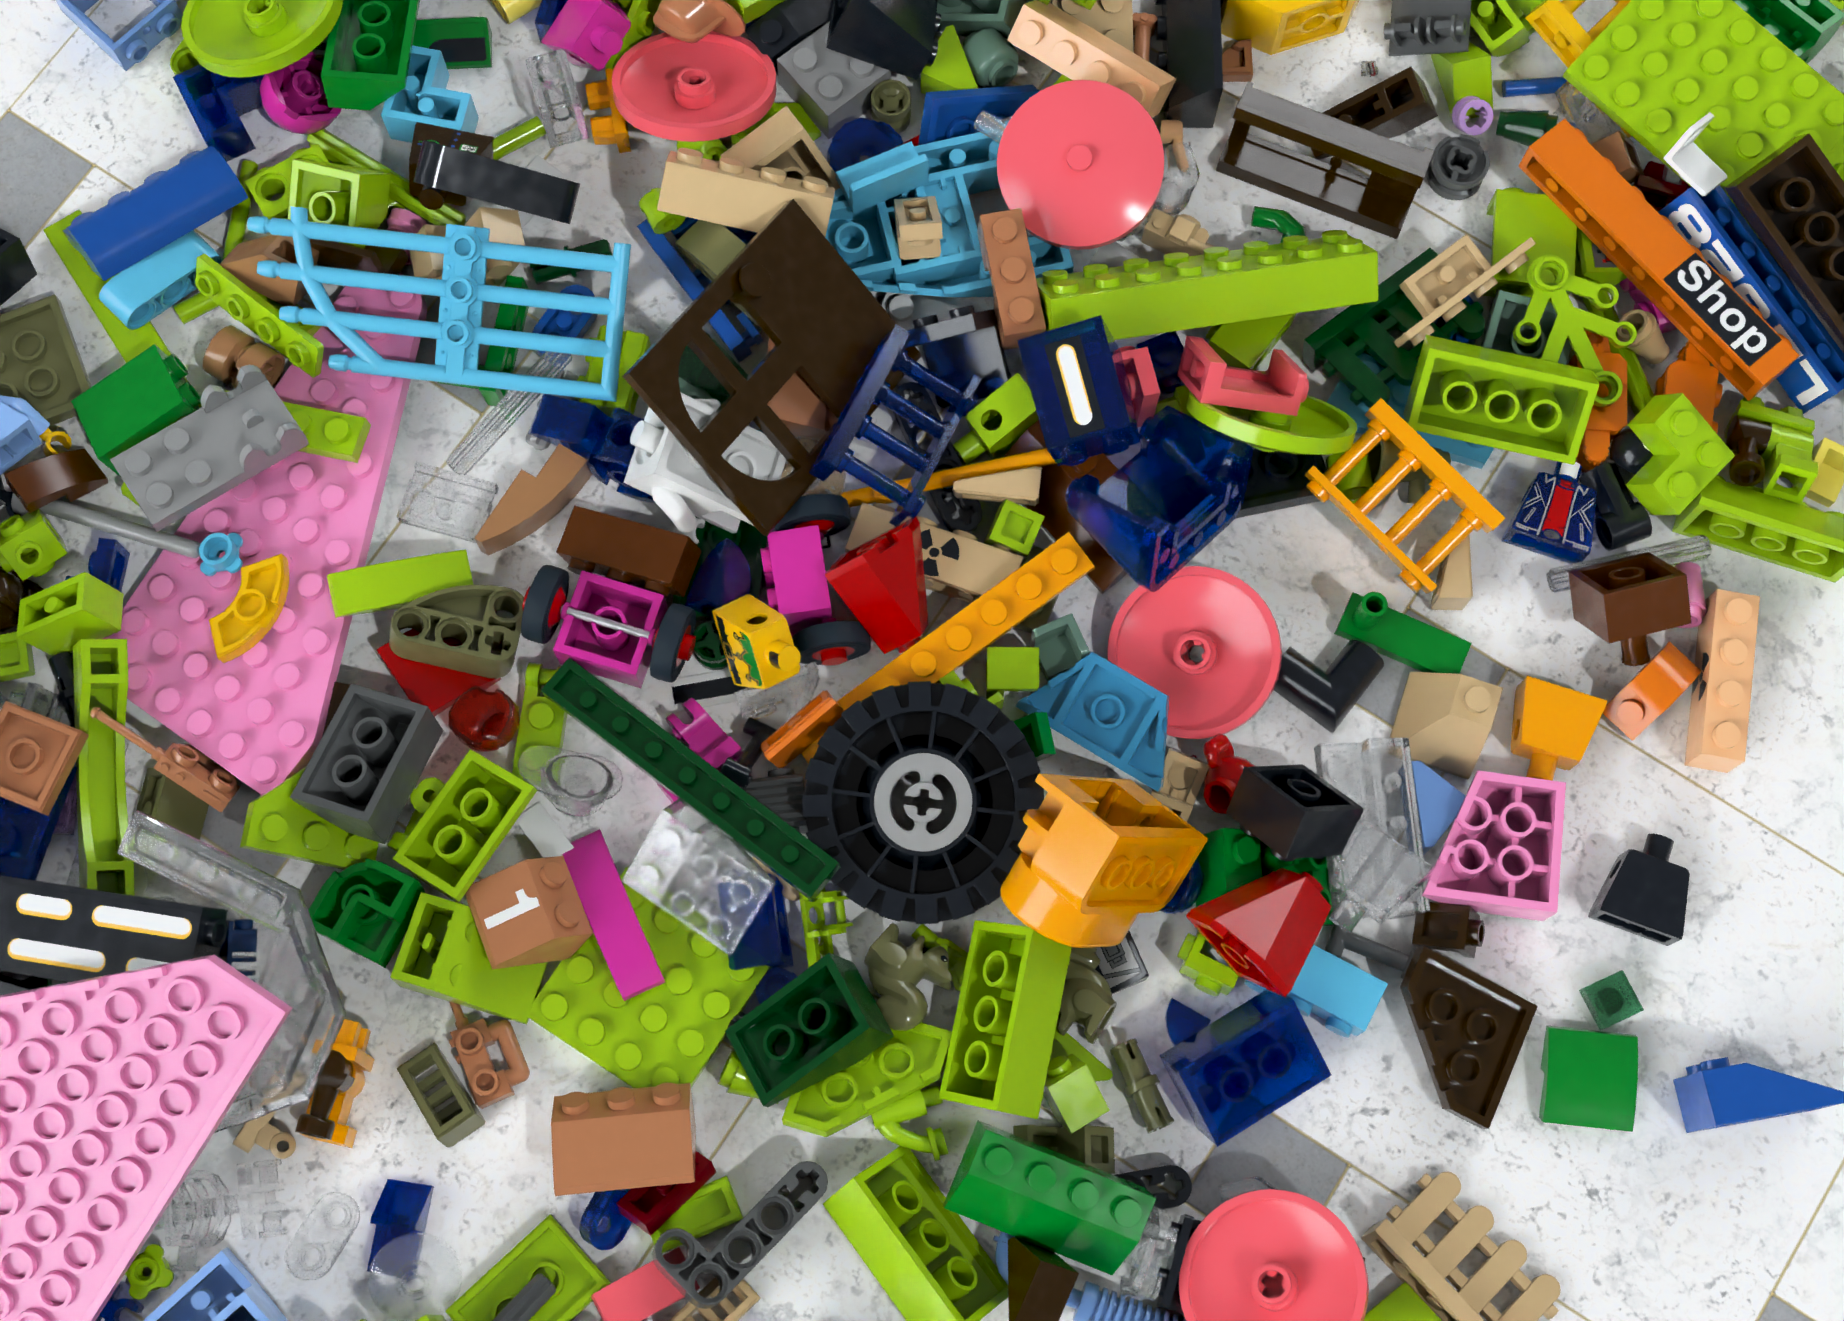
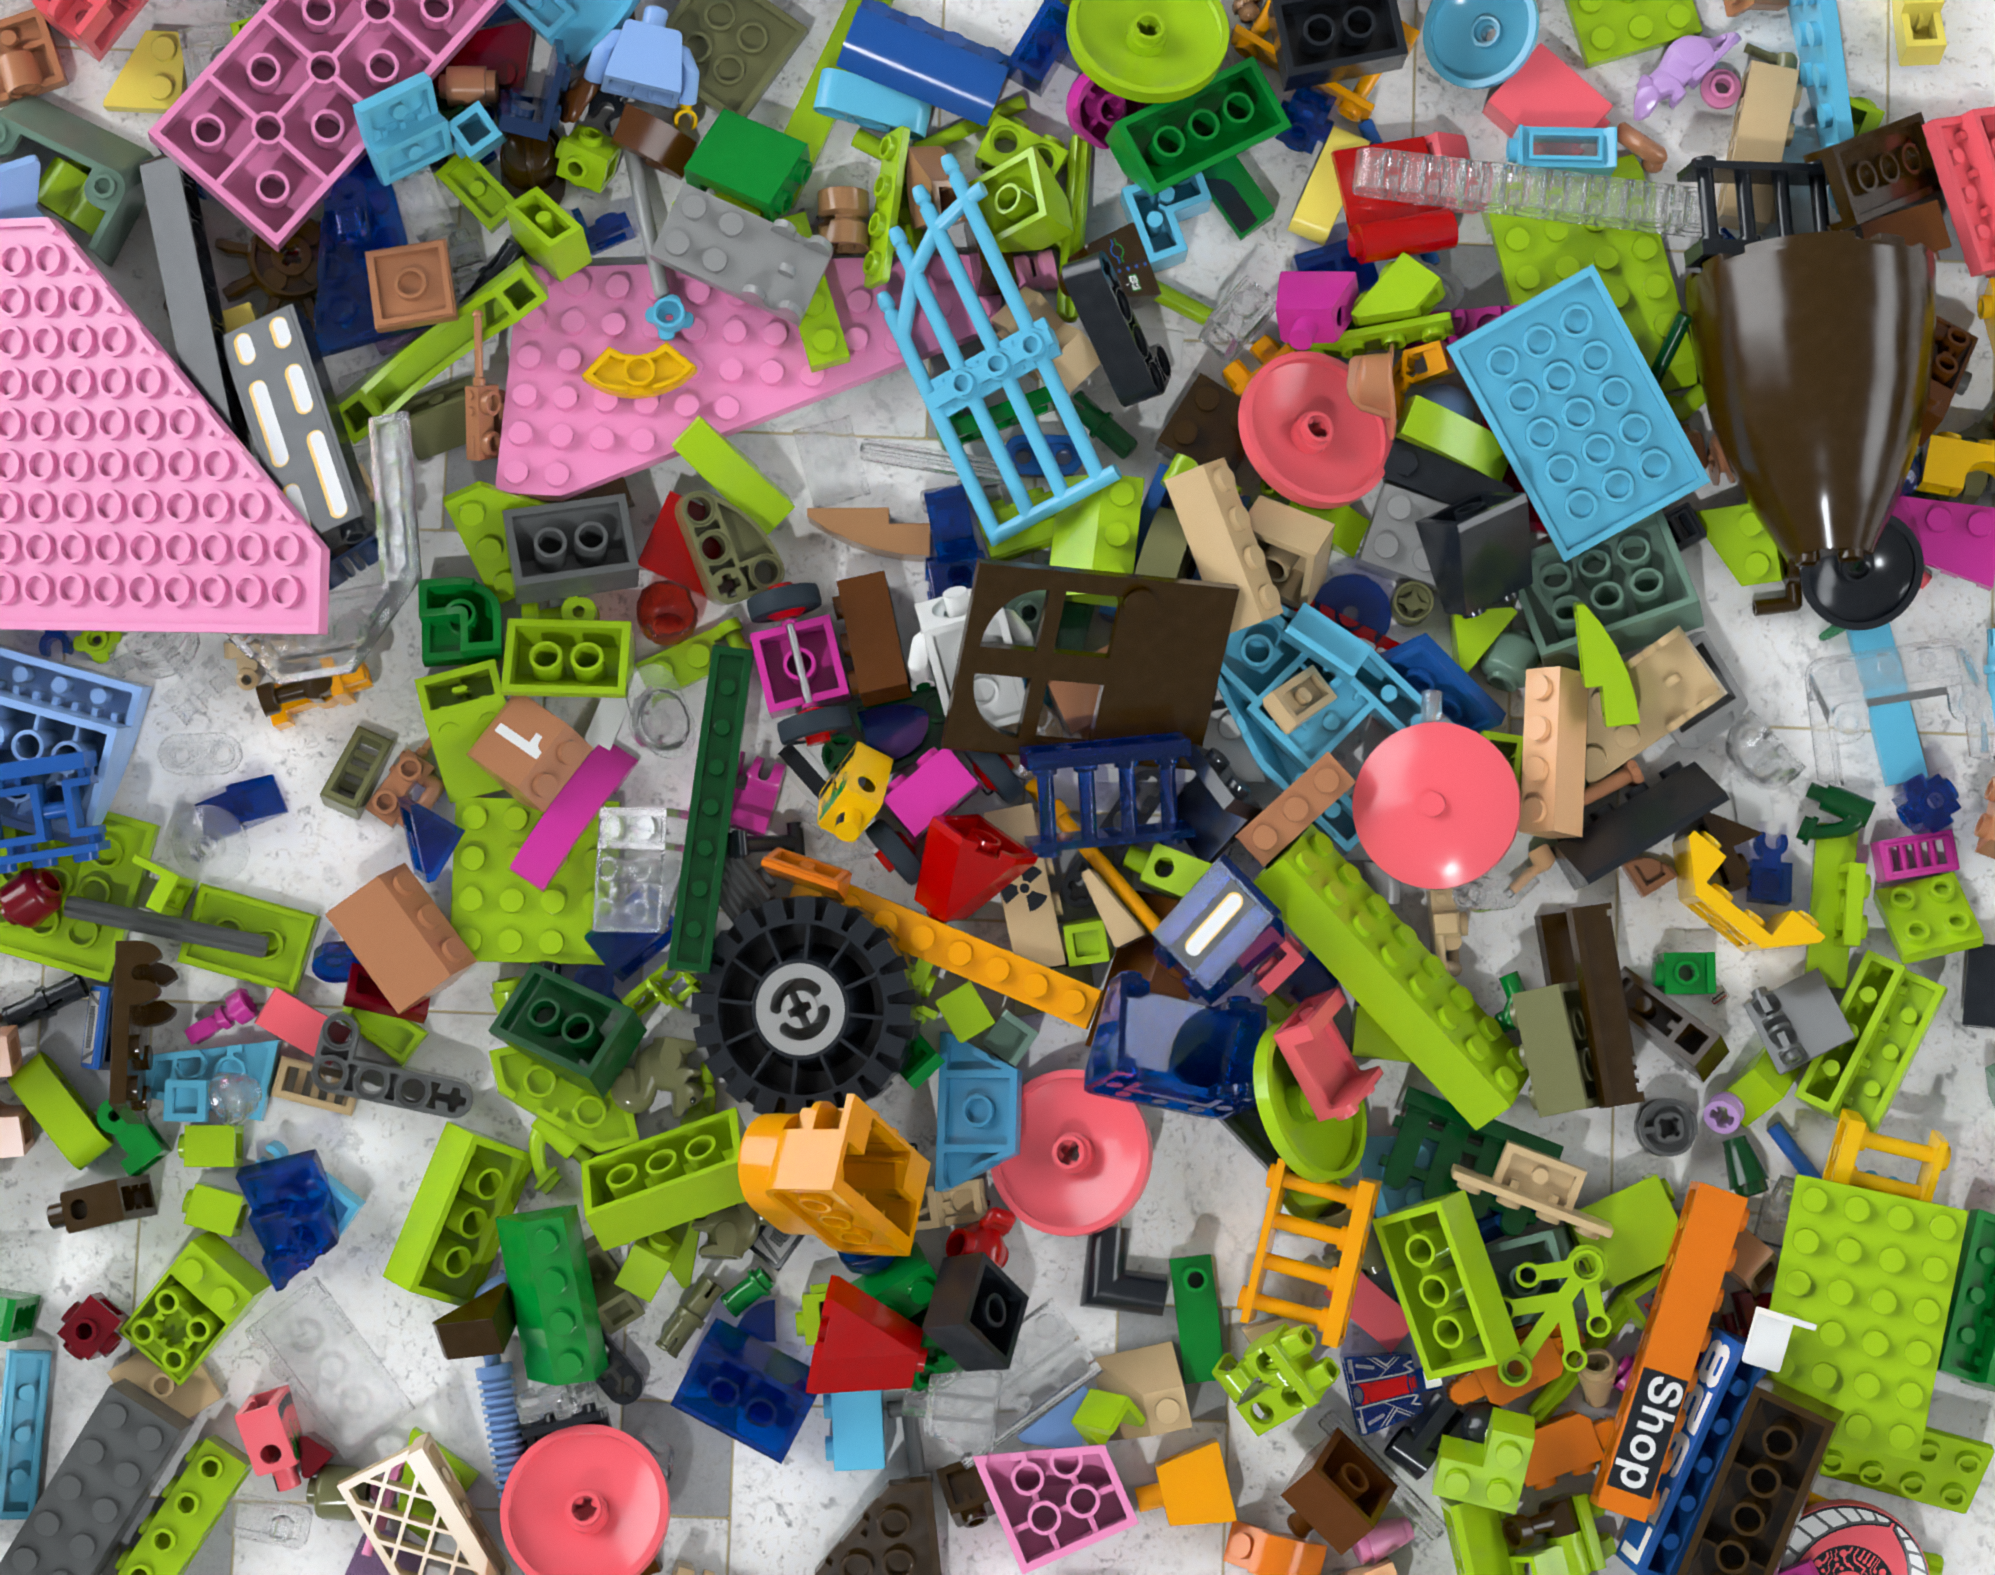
camera: 60 degrees right, 10 degrees up
(544, 1060) = (428, 837): none -> clear blue slope
(625, 170) = (1205, 426): none -> dark brown brick
(659, 292) = (1099, 533): none -> lime slope
(1149, 1017) = (748, 1291): none -> green pin
(1337, 76) = (1702, 971): none -> green brick
(1346, 197) = (1555, 1048): none -> olive brick
(1449, 754) = (1102, 1413): none -> lime panel
(1494, 479) = (1377, 1314): none -> coral slope
(1501, 577) = (1286, 1372): none -> lime hips

